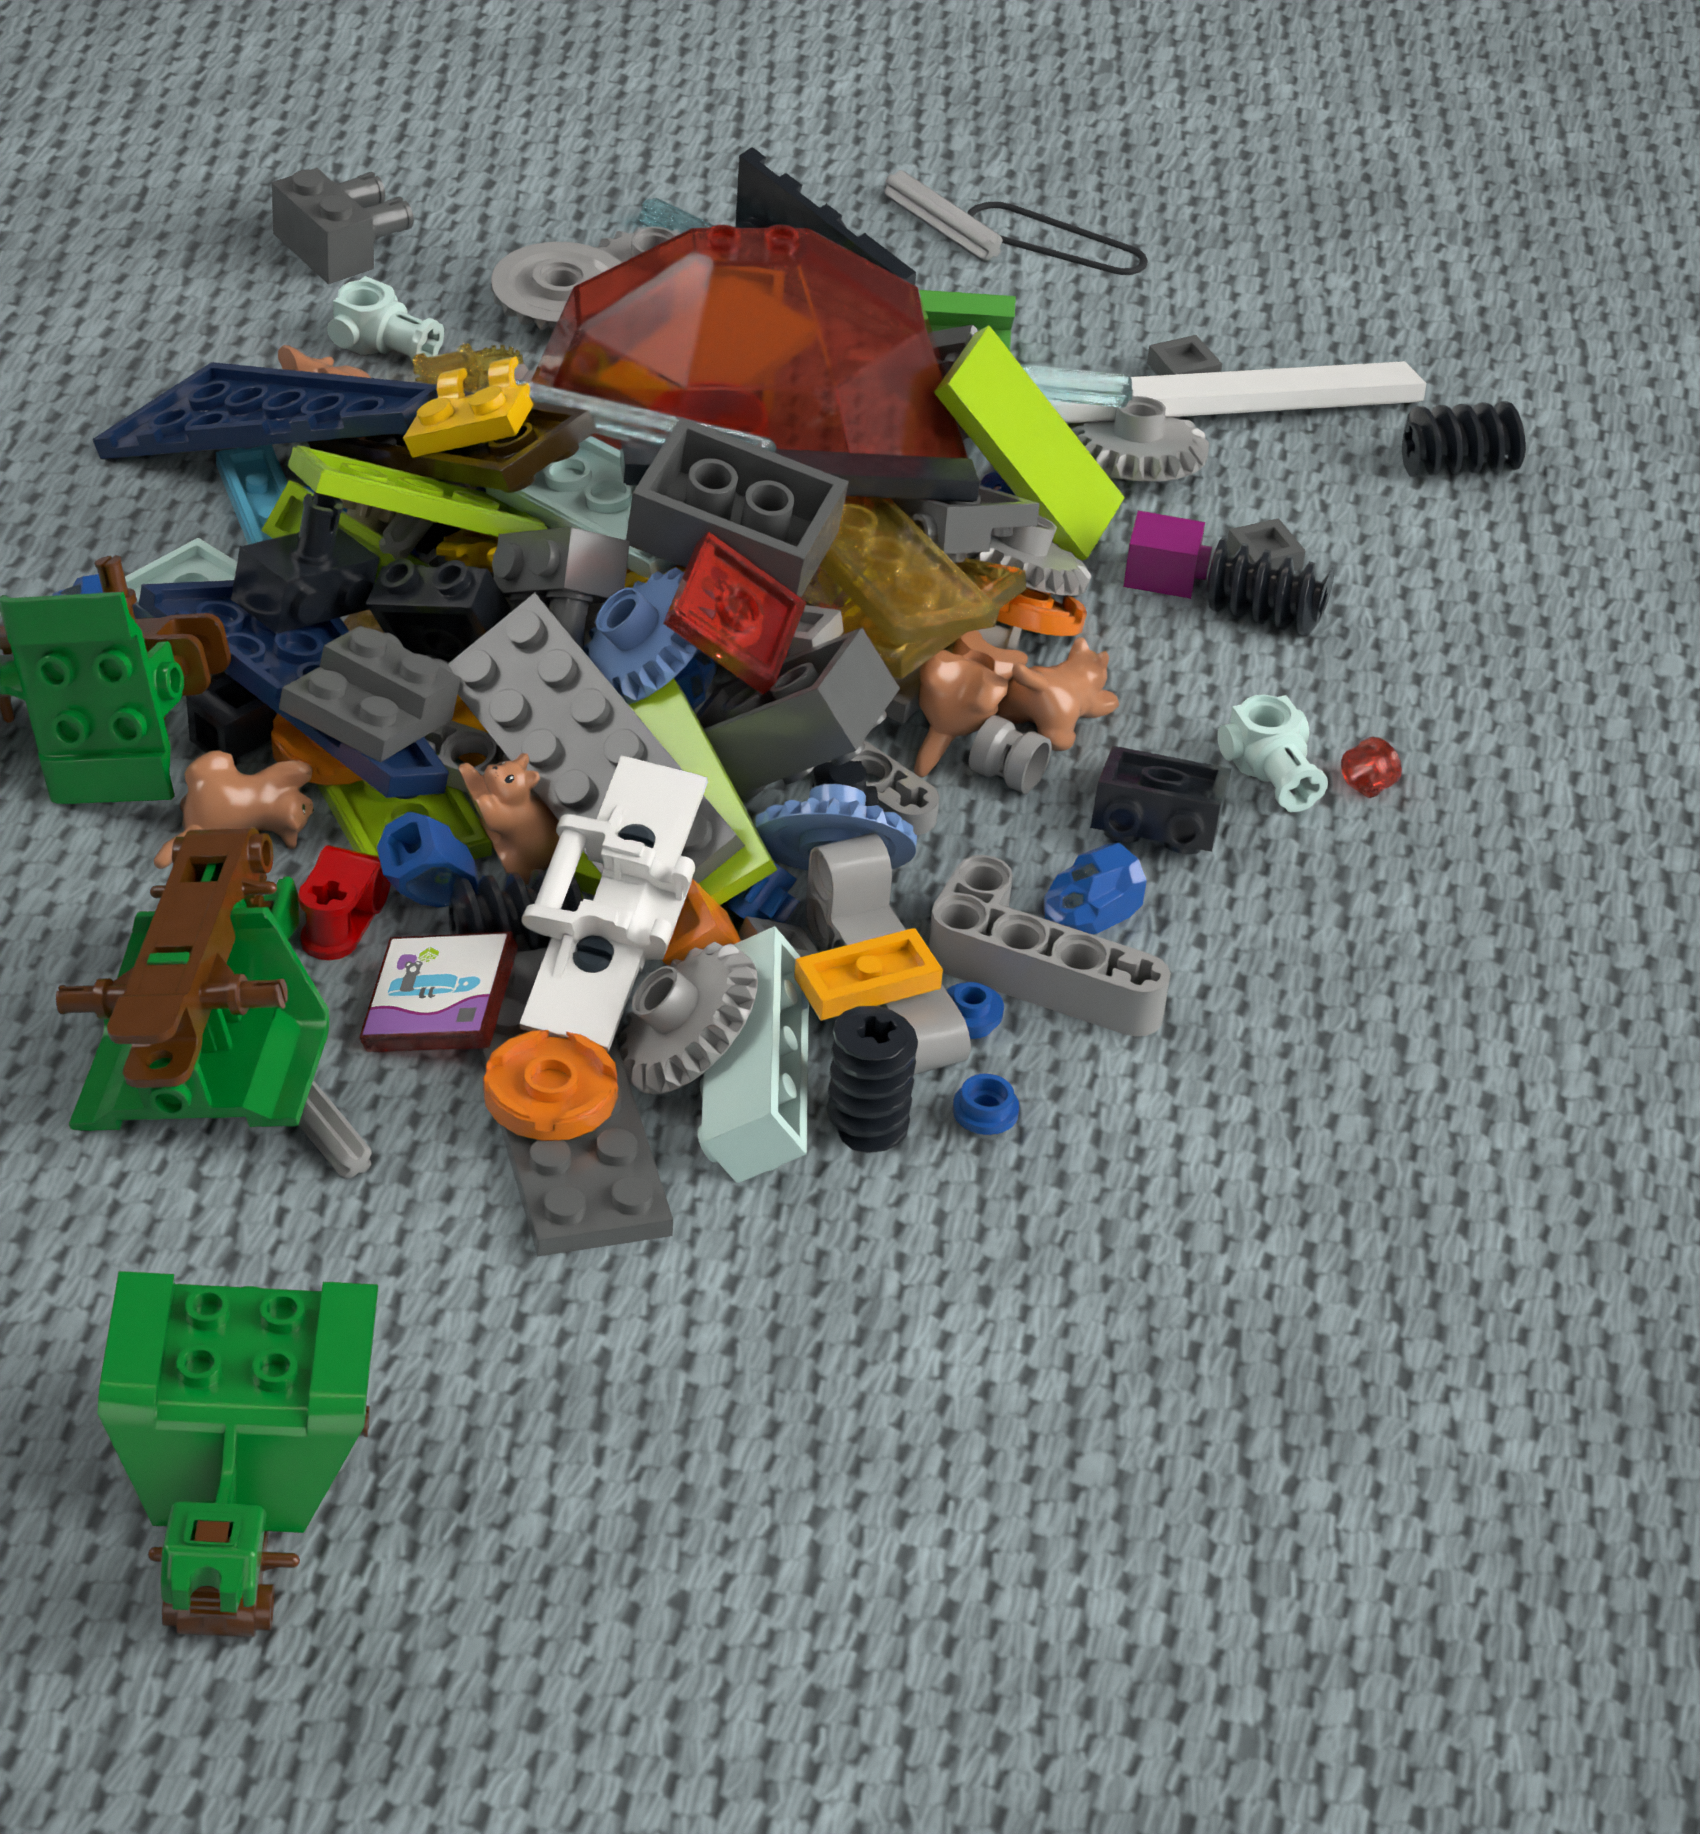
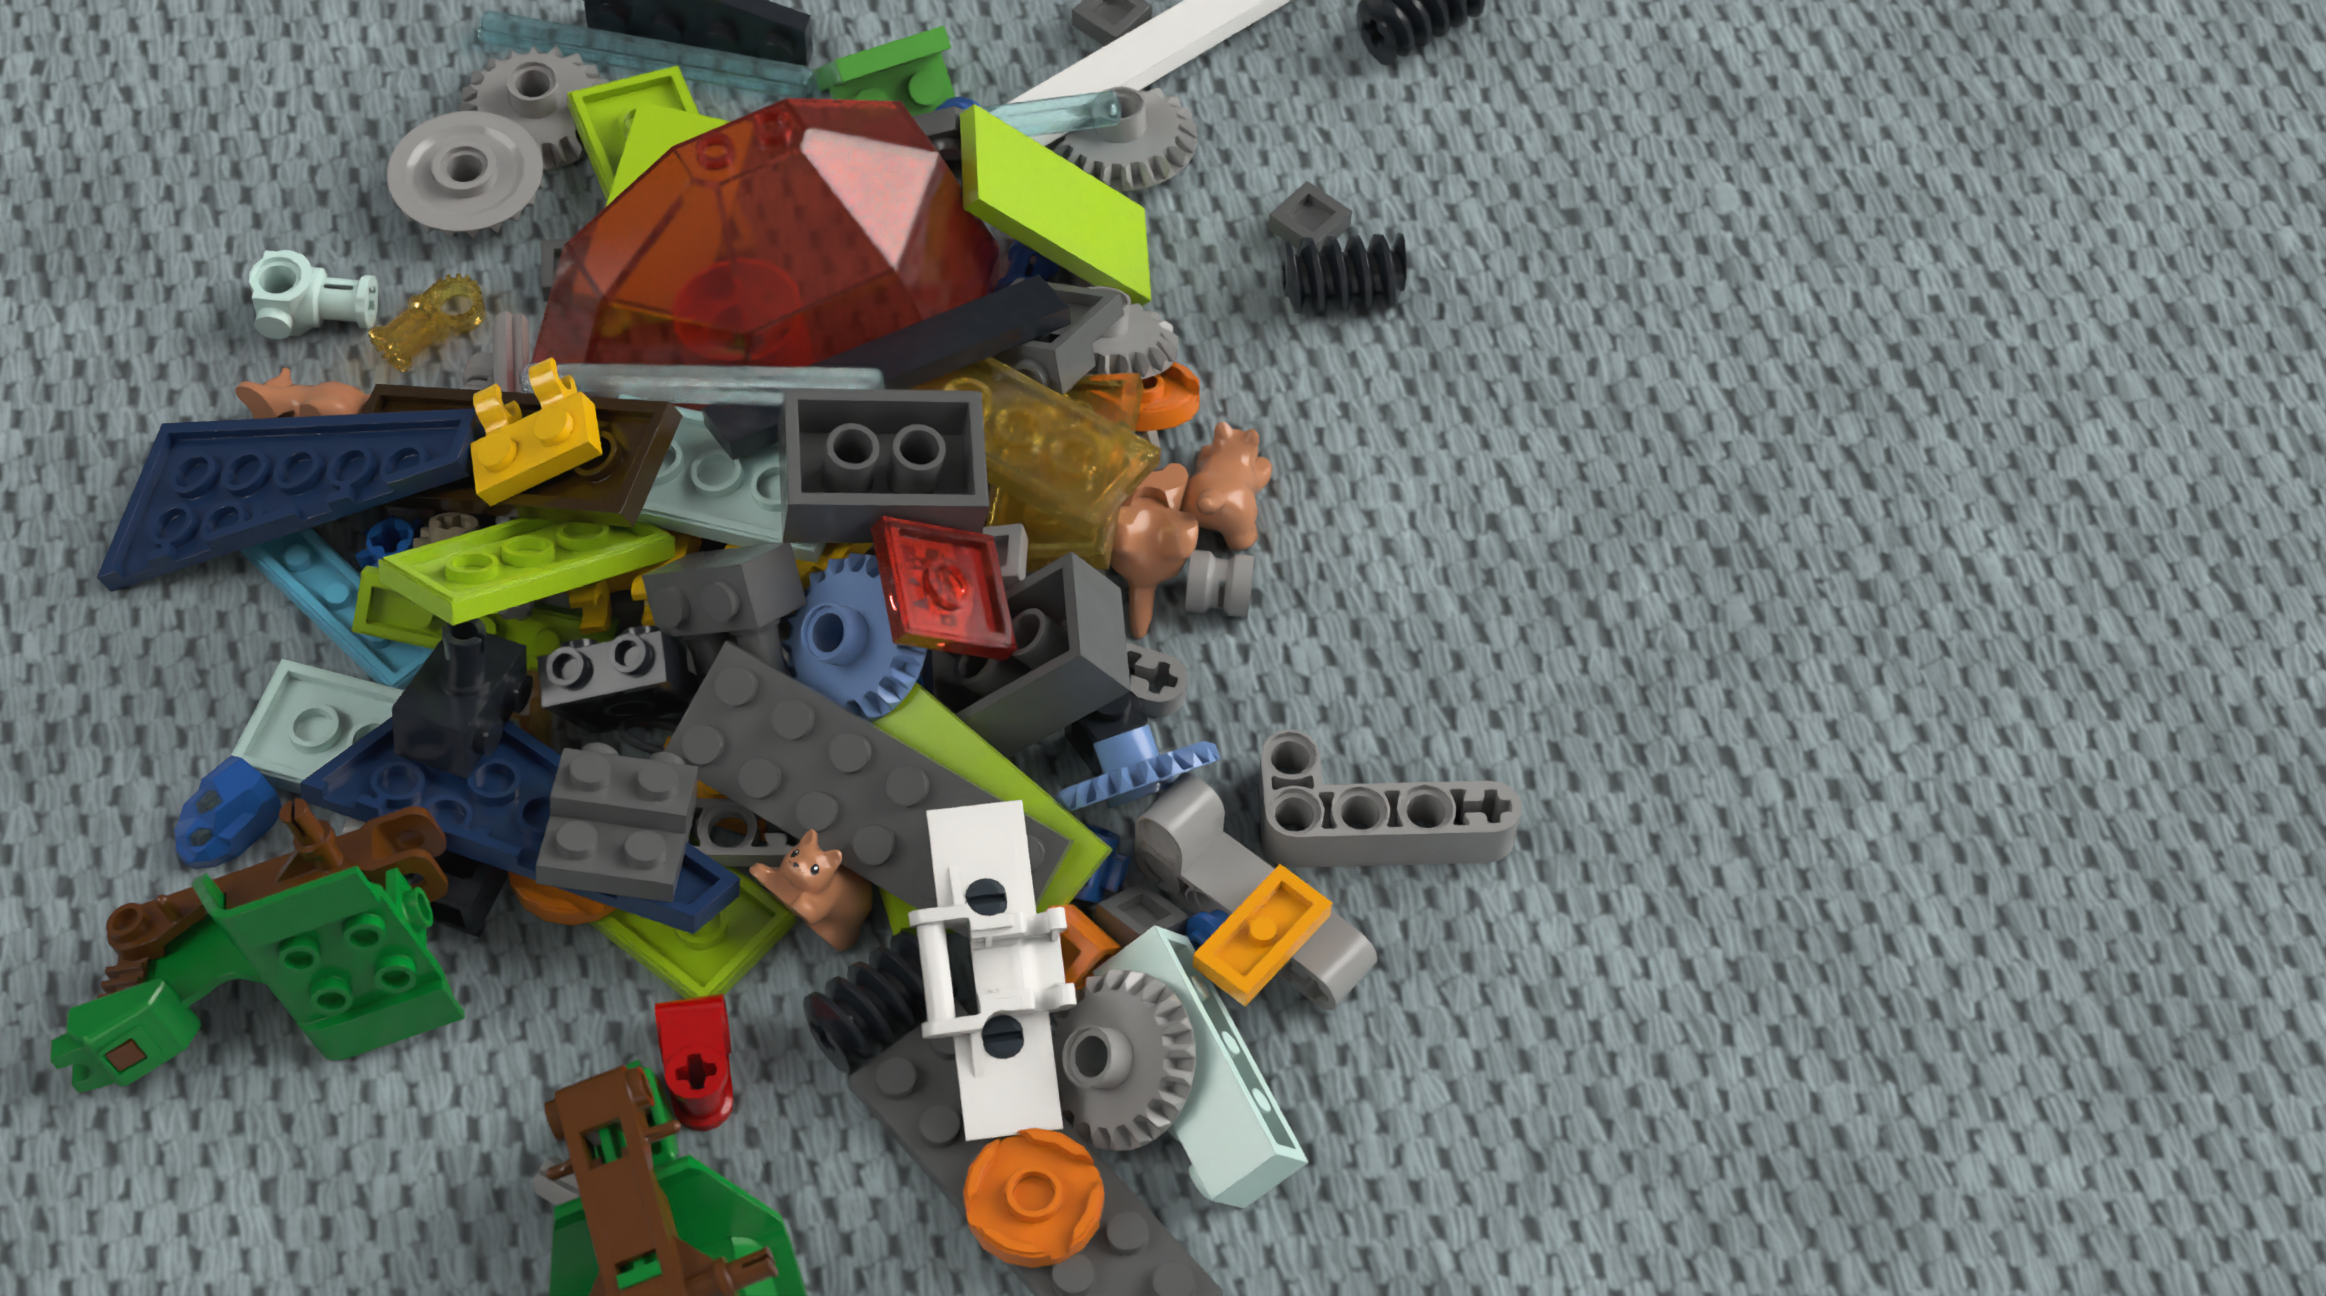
camera: 25 degrees left, 15 degrees up
(228, 799) = (518, 995): nougat animal -> none
(331, 223) = (174, 190): dark grey brick -> none
(424, 859) = (761, 981): blue rock -> none
(439, 992) = (860, 1131): tile -> none
(871, 1078) = (1325, 1049): black piece -> none
(979, 1007) = (1346, 884): blue plate -> none
(986, 1105) = (1426, 997): blue plate -> none
(1097, 890) = (1382, 715): blue rock -> none
(1160, 800) = (1384, 575): black plate -> none
(1166, 555) = (1228, 270): magenta brick -> none
(1269, 743) = (1451, 469): light aqua connector -> none
(1373, 753) = (1544, 448): clear red bush -> none

